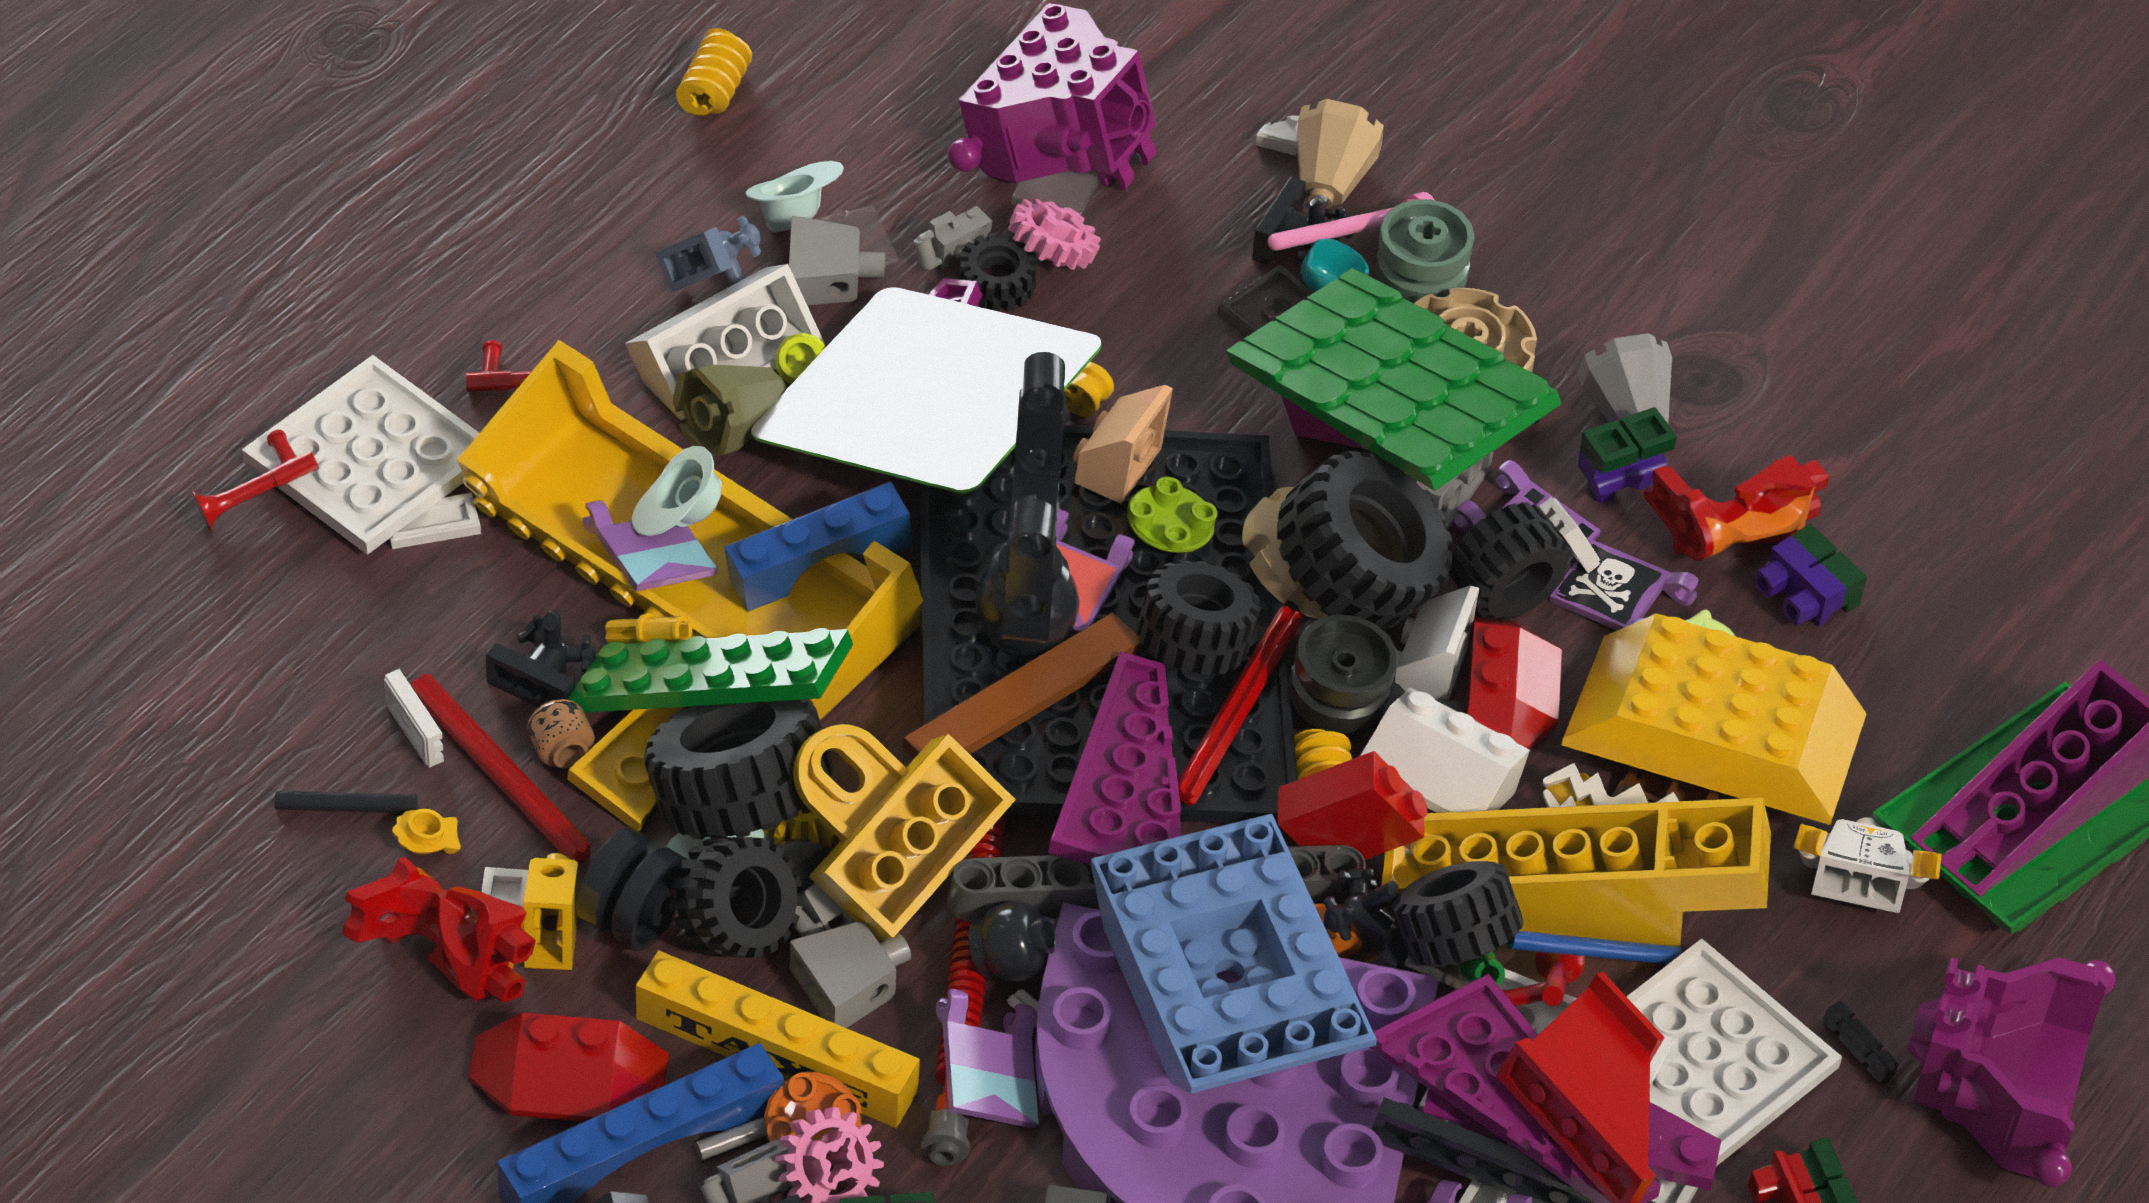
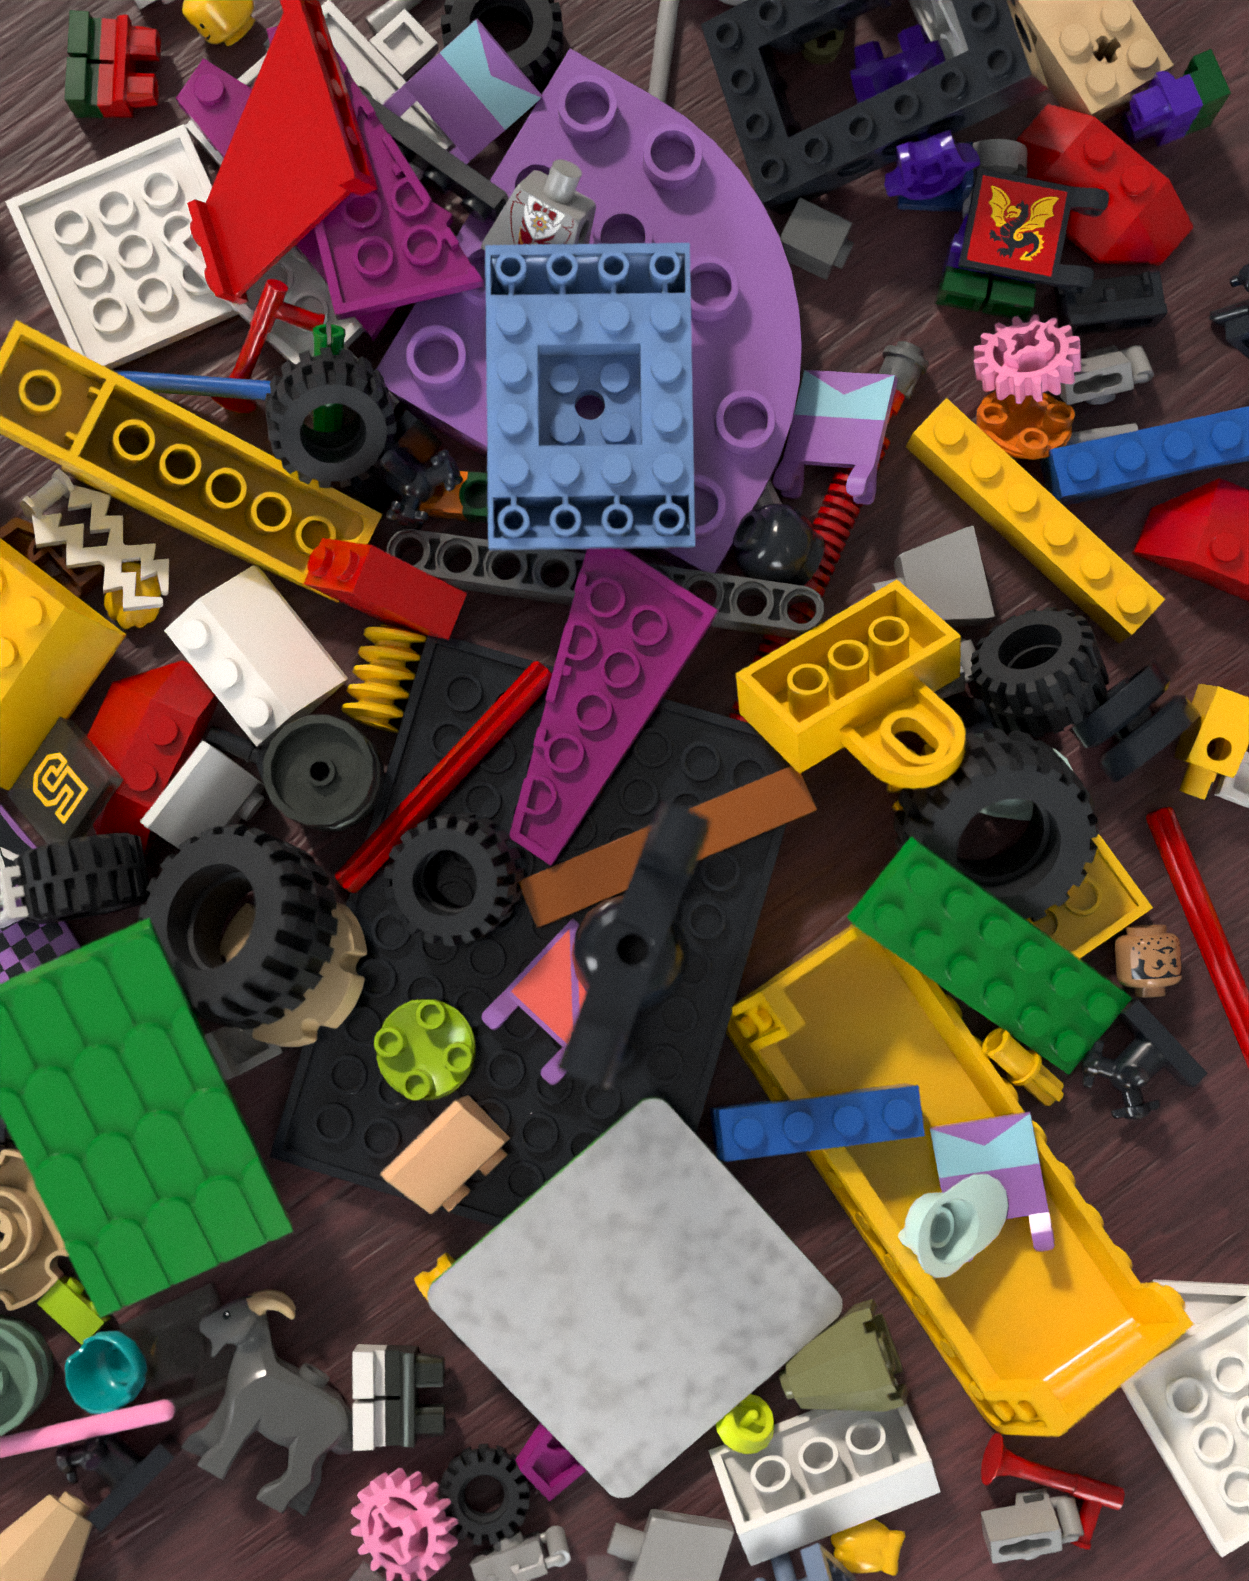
camera: 165 degrees left, 35 degrees up
(536, 339) = (1030, 1526): none -> light grey piece
(665, 304) = (868, 1548): none -> yellow animal
(1100, 308) = (387, 1396): none -> pearl dark grey hips
(1193, 287) = (275, 1399): none -> dark grey animal
(1332, 1096) = (545, 210): none -> light grey torso
(1559, 630) = (65, 784): none -> clear smoke tile

